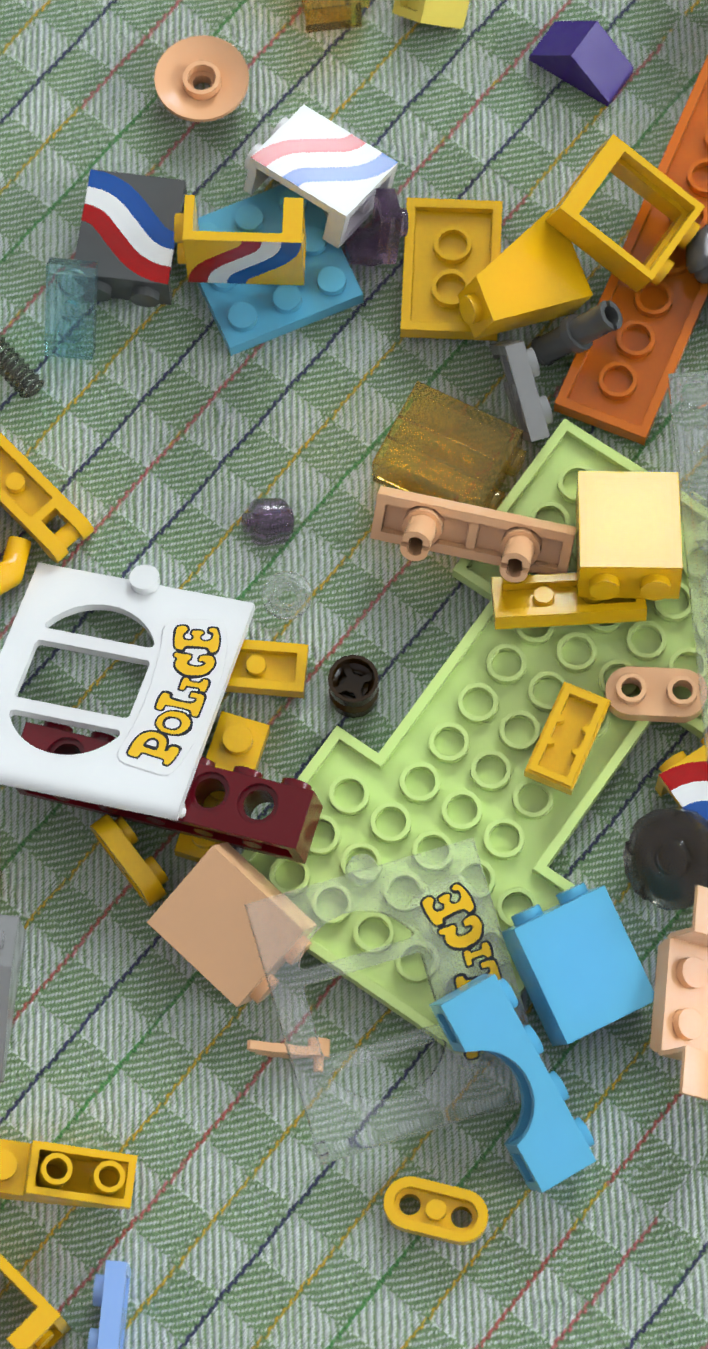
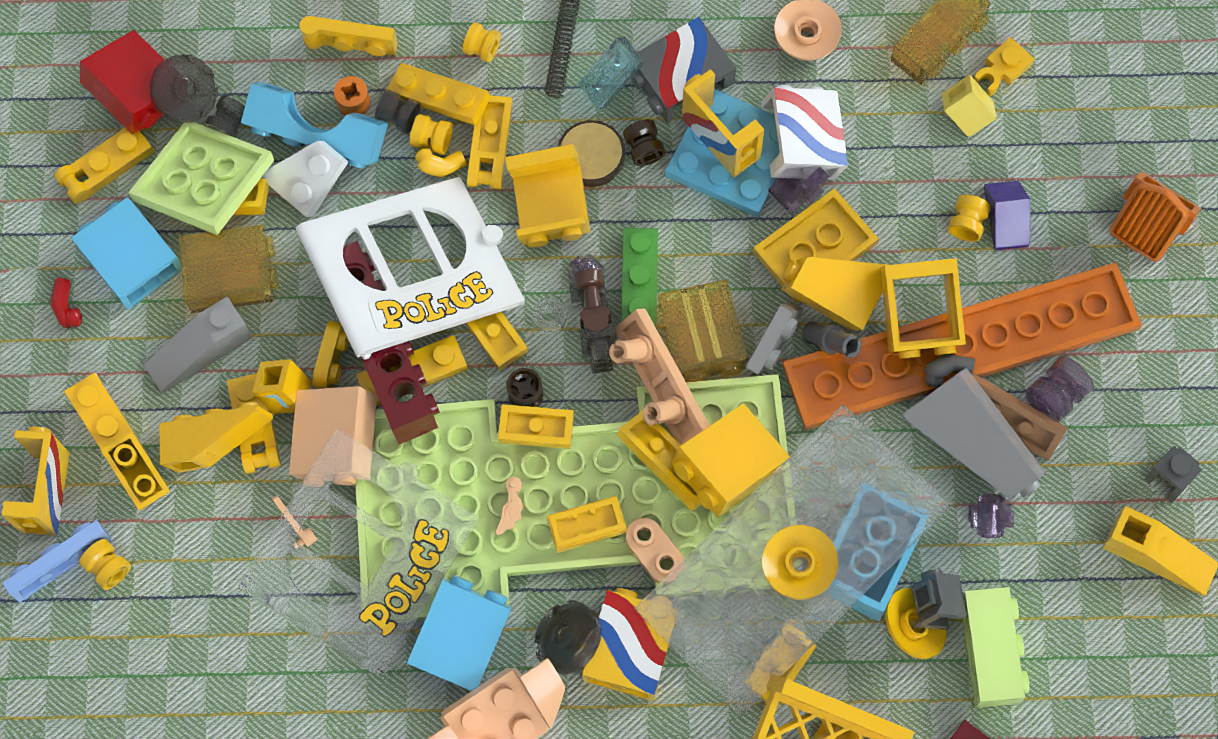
camera: 50 degrees right, 0 degrees up
(112, 1070) = (203, 440): none -> yellow slope
(122, 937) = (278, 384): none -> yellow brick
(131, 1005) = (240, 392): none -> yellow plate
(137, 406) = (599, 150): none -> pearl gold tile
(153, 486) = (549, 195): none -> yellow panel
(160, 1294) = (105, 564): none -> yellow wheel
(178, 342) = (644, 142): none -> dark brown wheel
(322, 469) = (640, 271): none -> bright green plate
(344, 550) = (595, 319): none -> hips
(412, 703) = (536, 426): none -> yellow plate
(437, 1205) = (266, 671): yellow plate -> none
(481, 803) = (512, 508): none -> light nougat piece
(547, 1139) = (349, 697): medium azure arch -> none
(555, 96) = (969, 217): none -> yellow wheel

